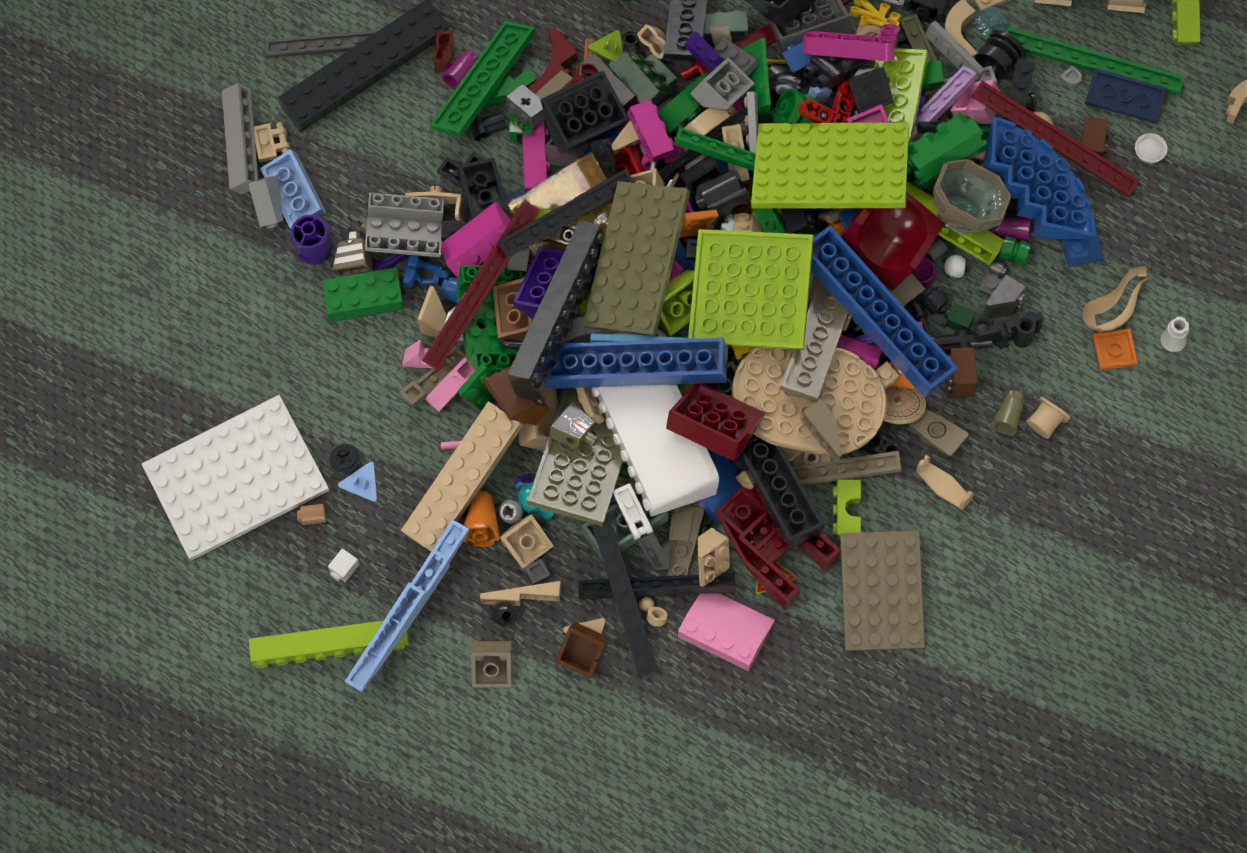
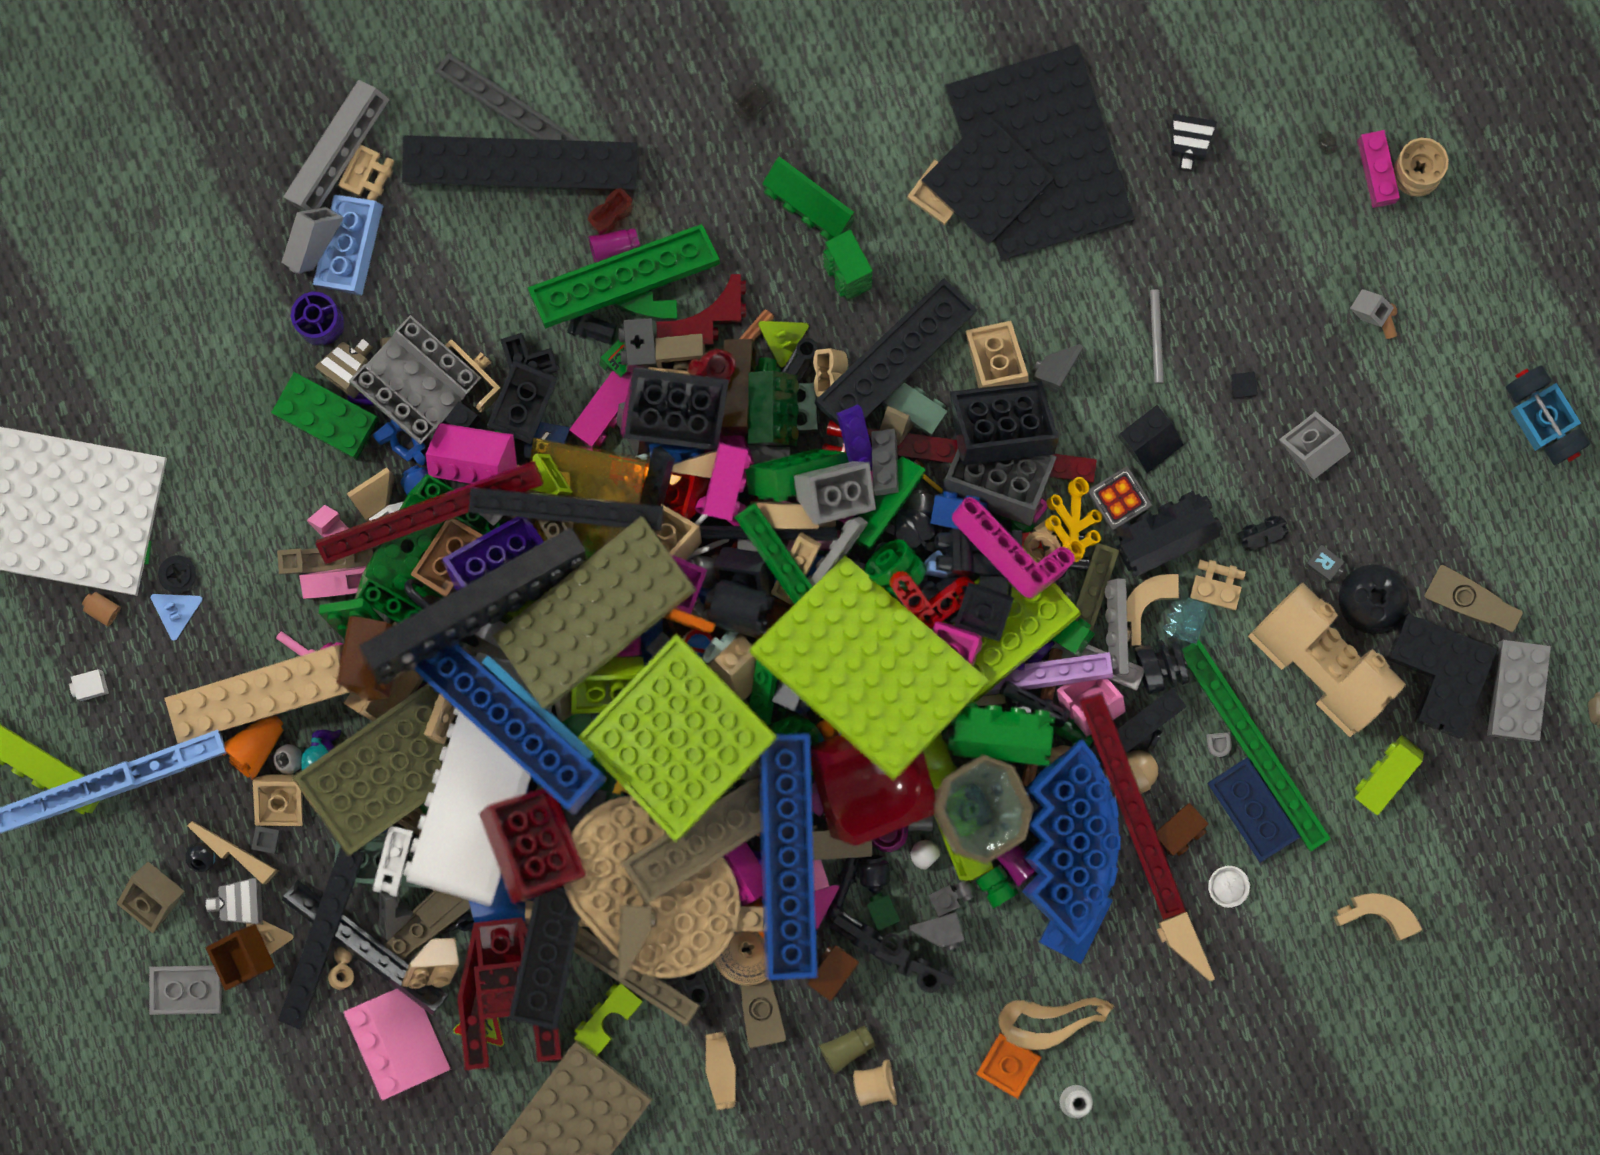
camera: 40 degrees right, 15 degrees up
(551, 621) = (238, 902): none -> torso
(562, 704) = (184, 990): none -> light grey tile
(573, 428) = (403, 733): torso -> none
(1155, 198) = (1183, 940): none -> tan slope

